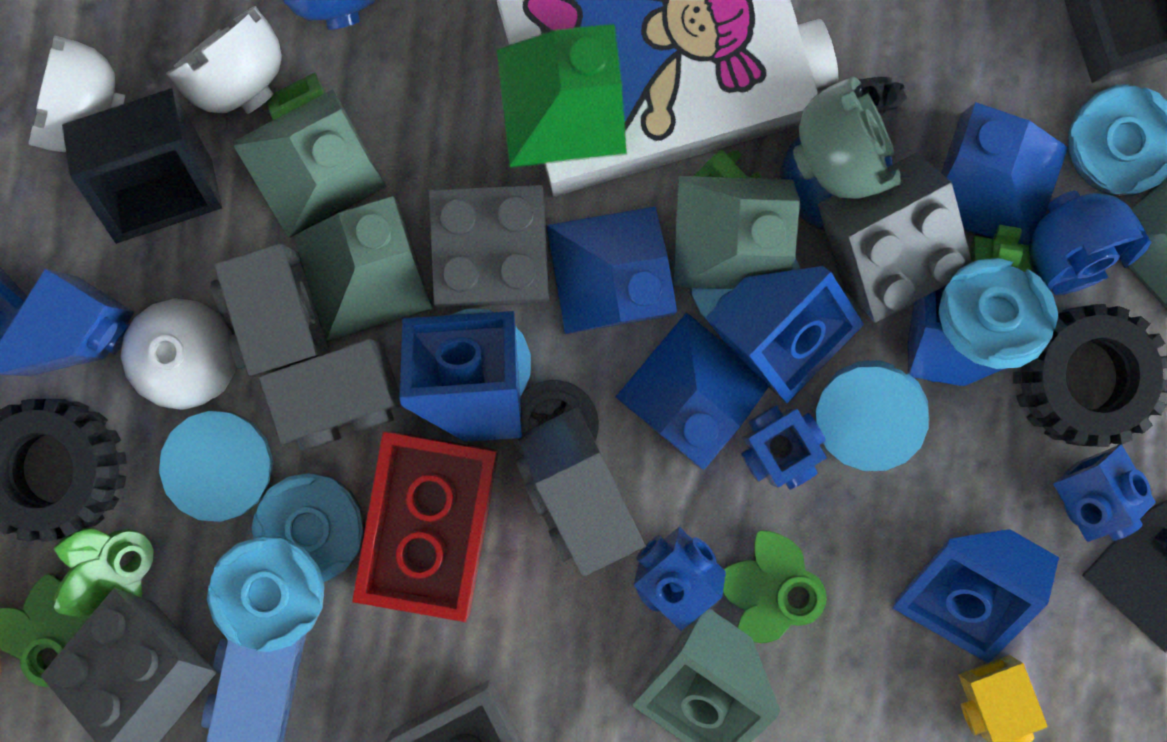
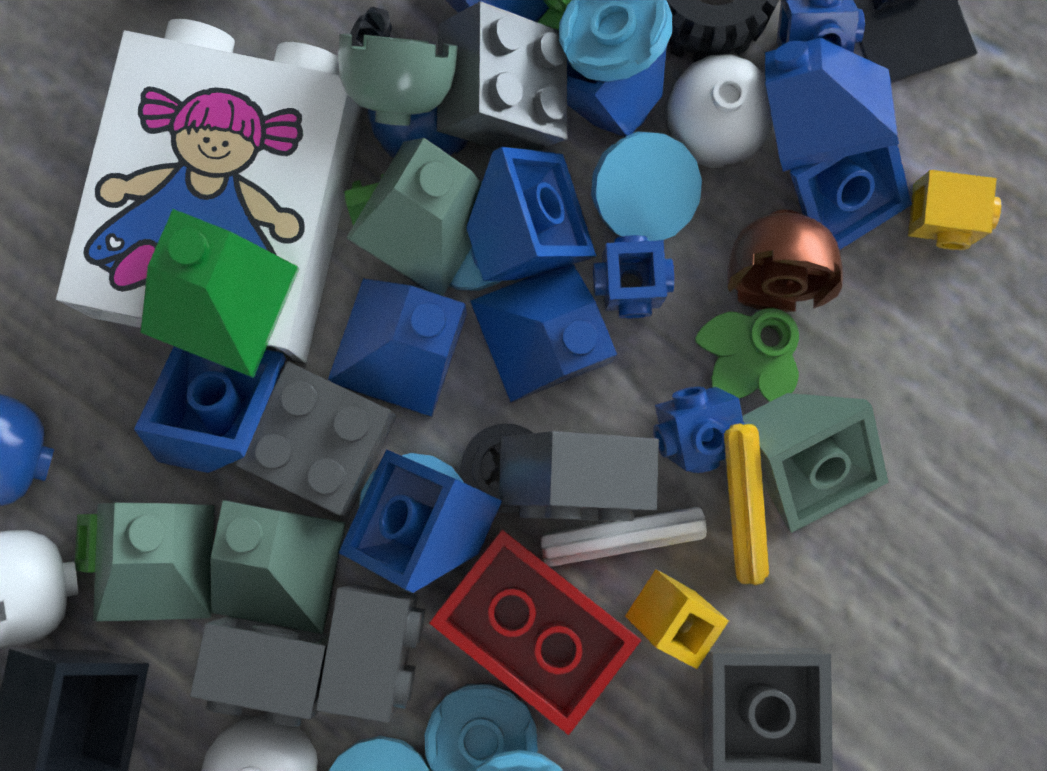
camera: 65 degrees left, 5 degrees down
(459, 138) = (204, 411): none -> blue slope
(501, 643) = (676, 619): none -> yellow brick
(538, 547) = (623, 536): none -> white axle
(634, 652) = (746, 503): none -> yellow axle
(869, 574) = (785, 262): none -> copper cylinder
(981, 445) = (720, 110): none -> white cylinder
(1032, 540) = (827, 103): none -> blue slope

